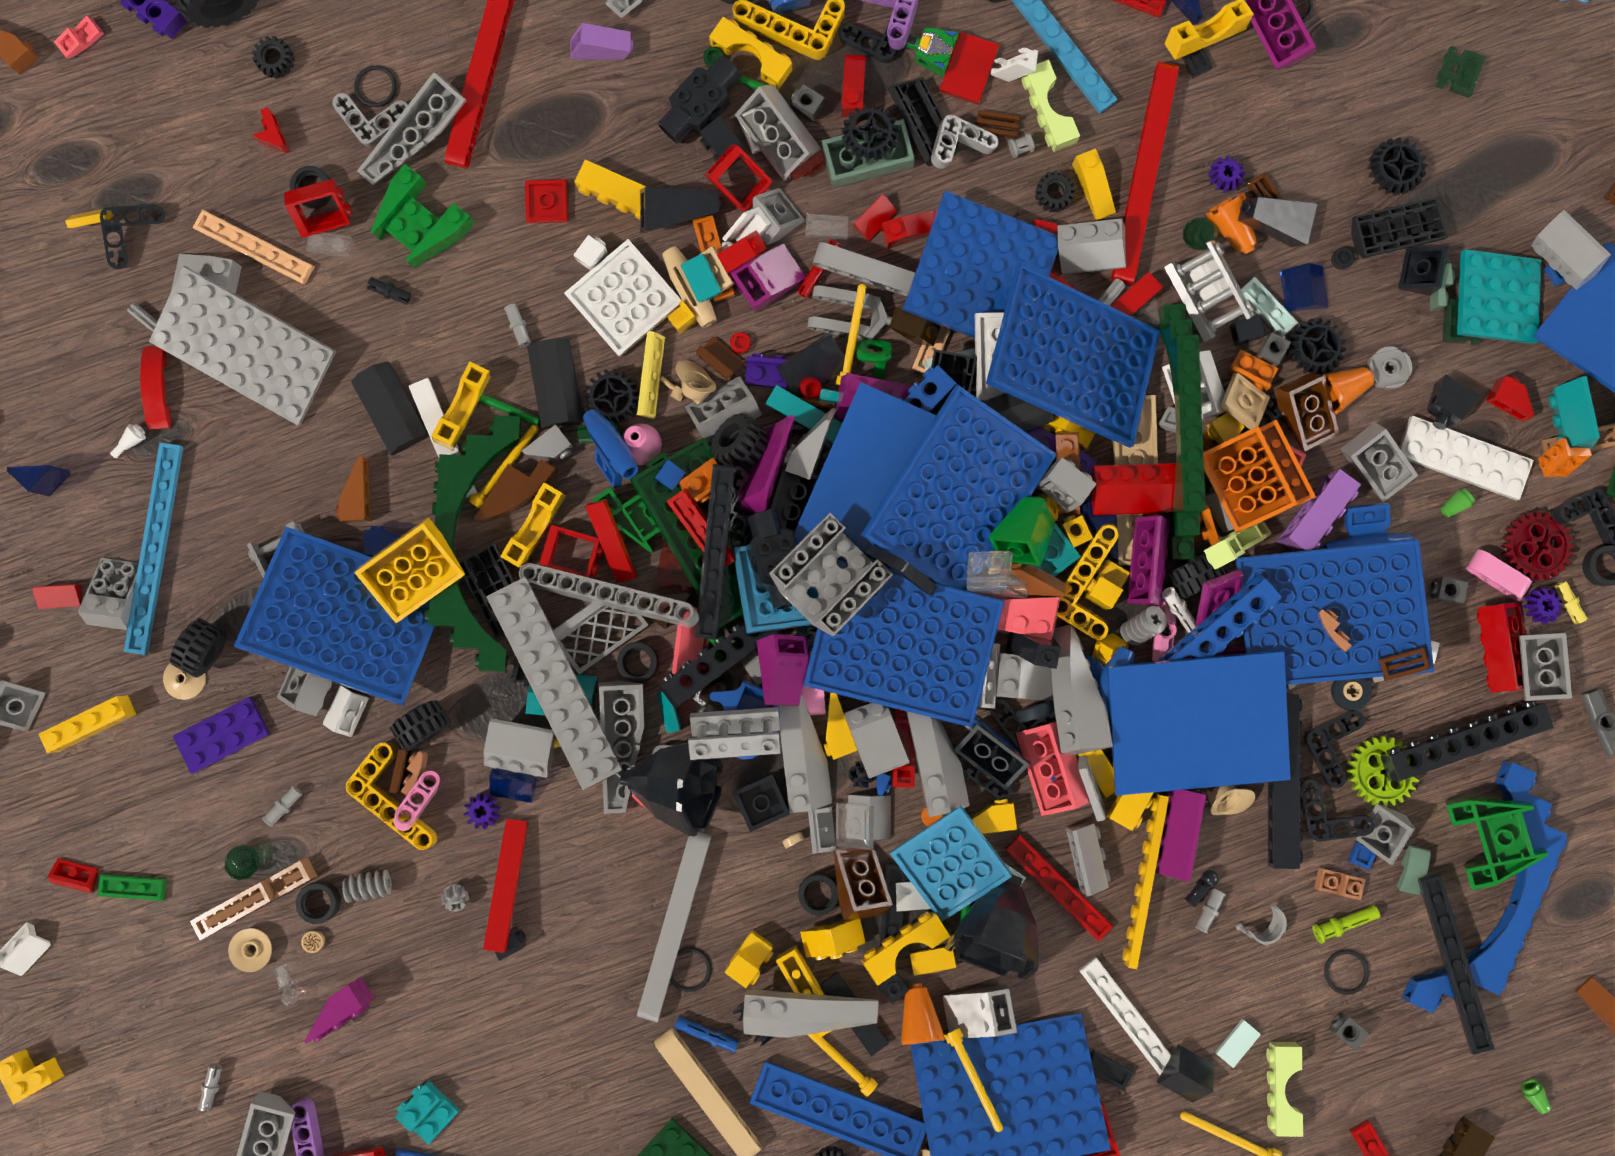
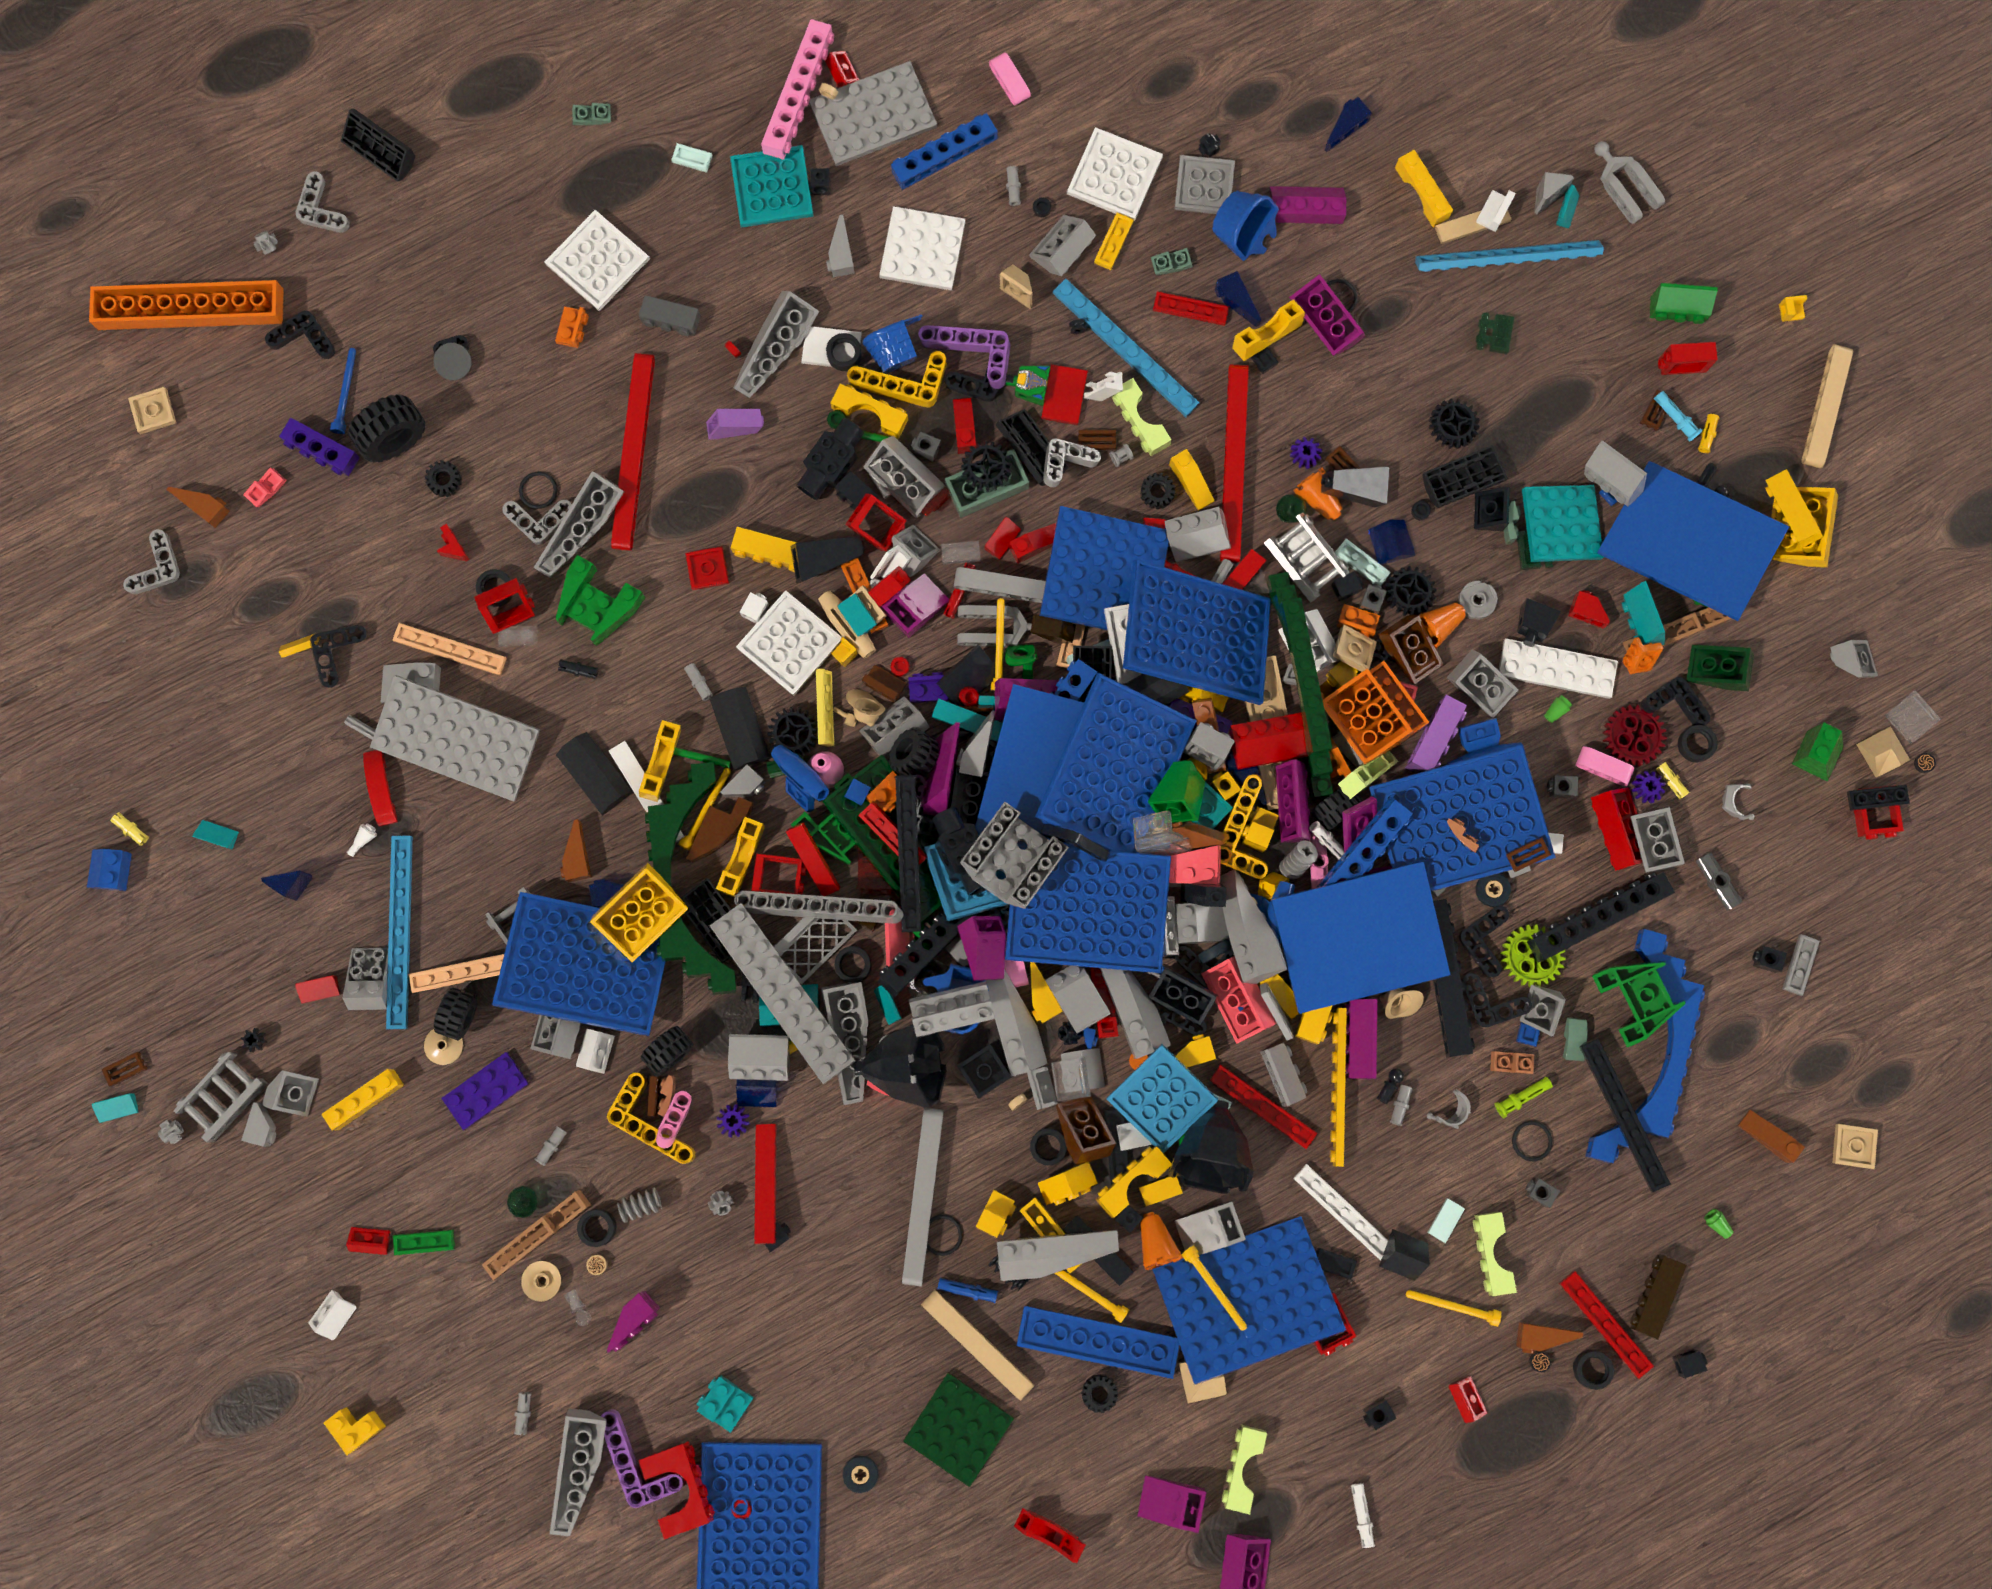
camera: 15 degrees left, 5 degrees down
(204, 604) = (455, 973): none -> light nougat tile

